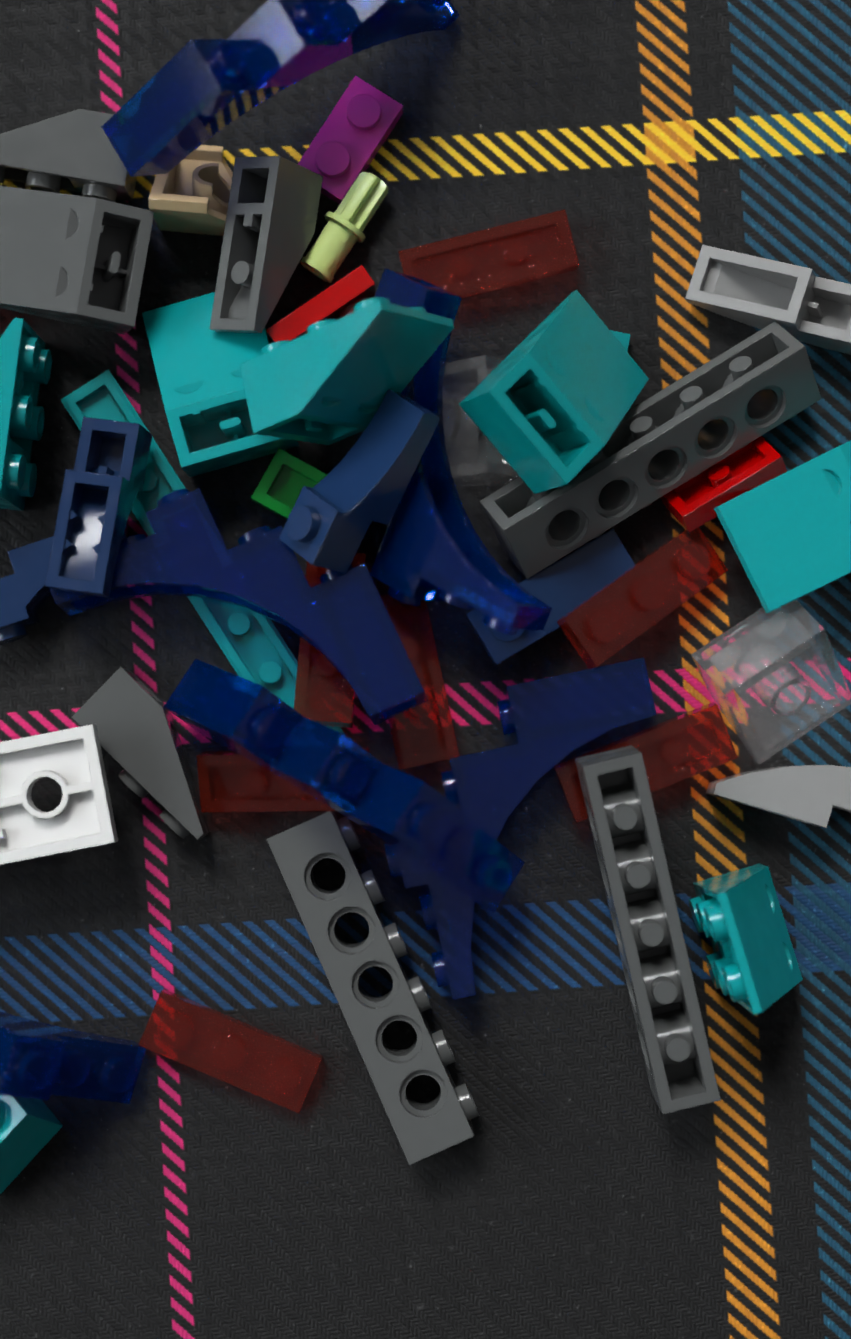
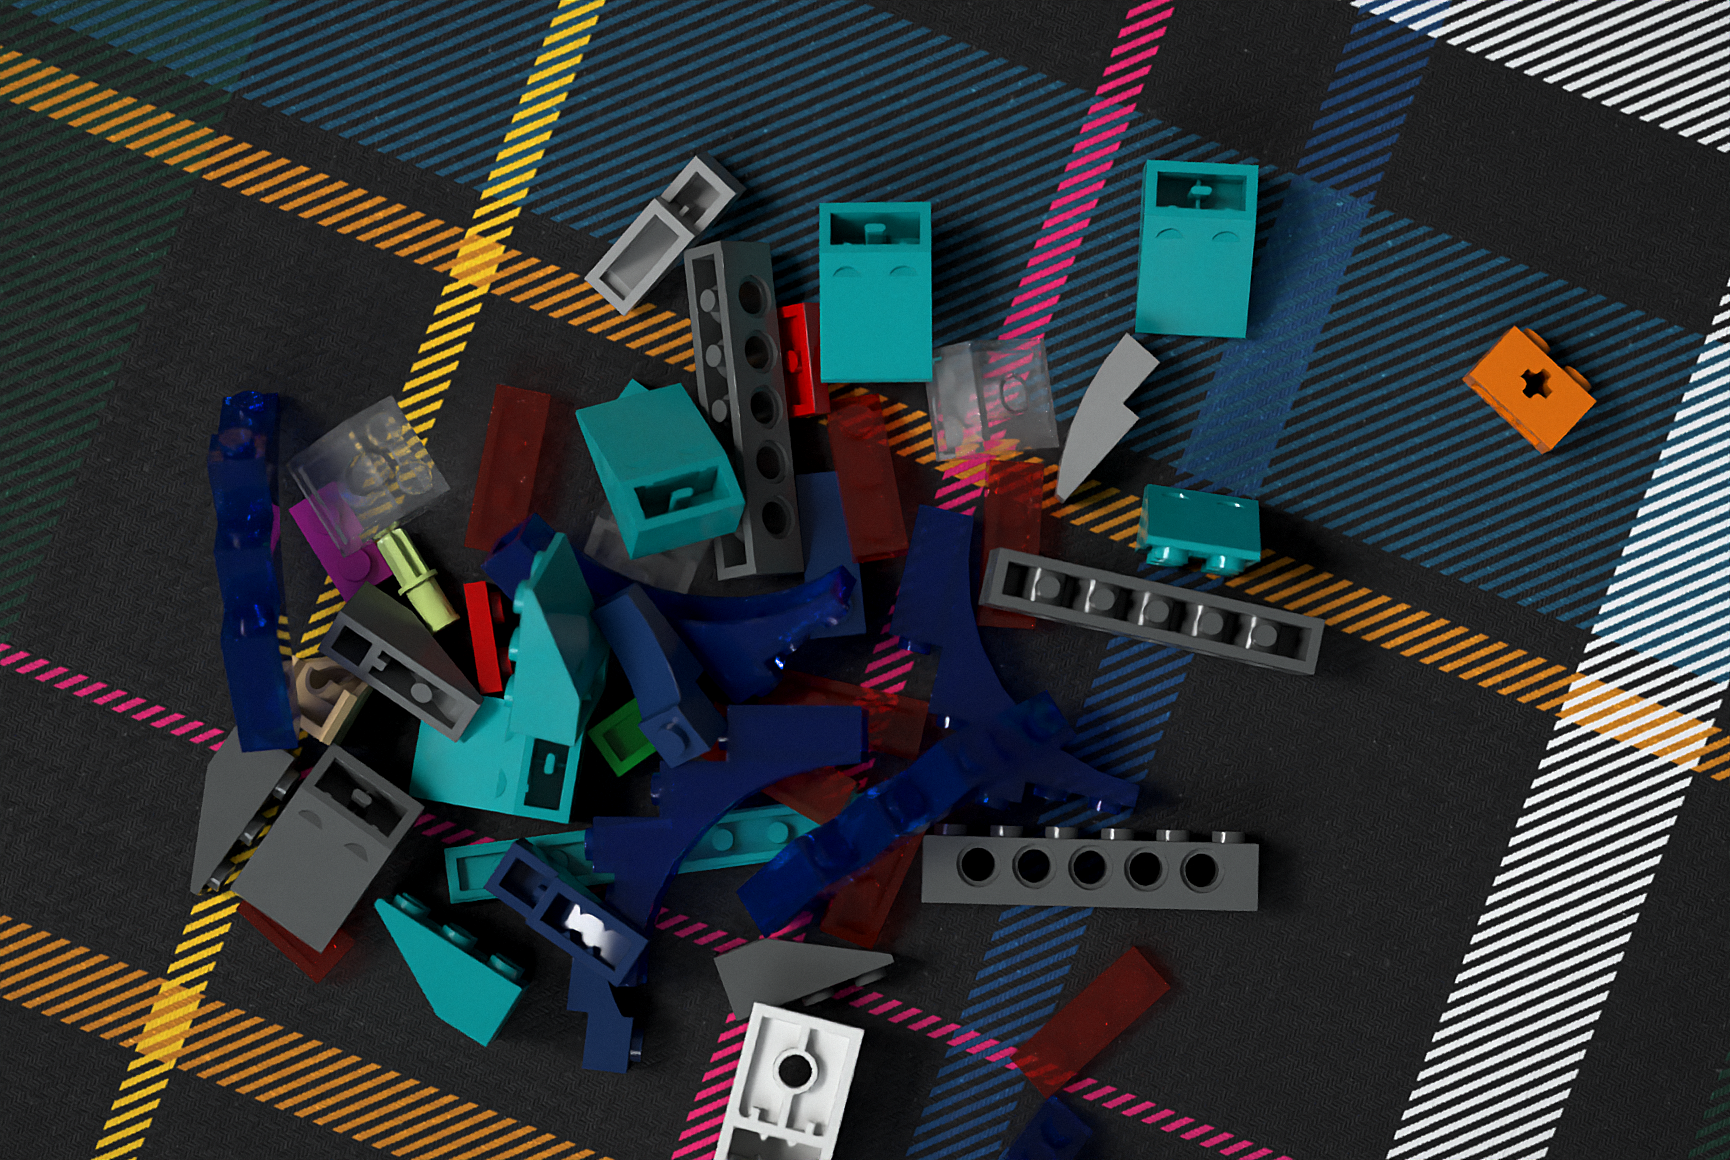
camera: 70 degrees left, 0 degrees up
(420, 129) = (368, 476): none -> clear slope

